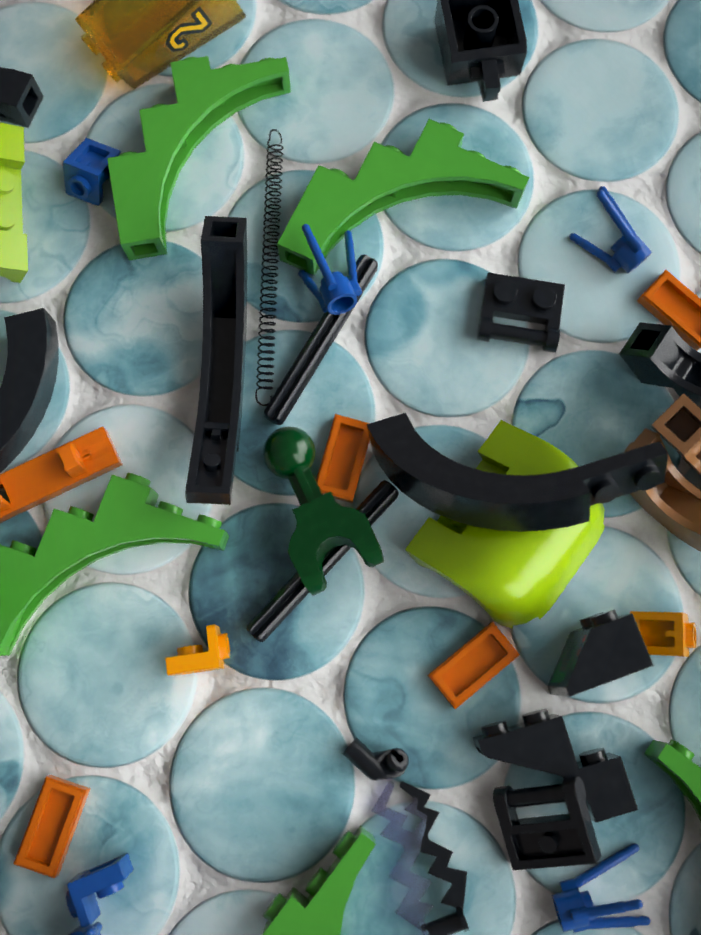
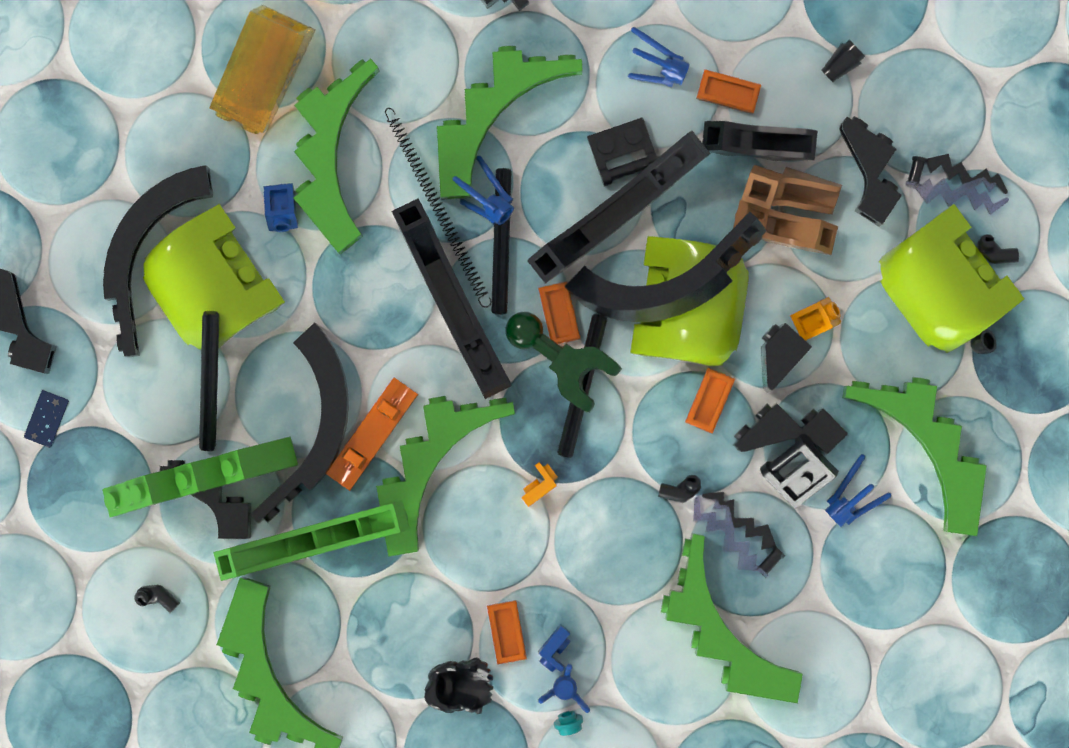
camera: 25 degrees left, 10 degrees up
(410, 380) = (619, 208): none -> black arch

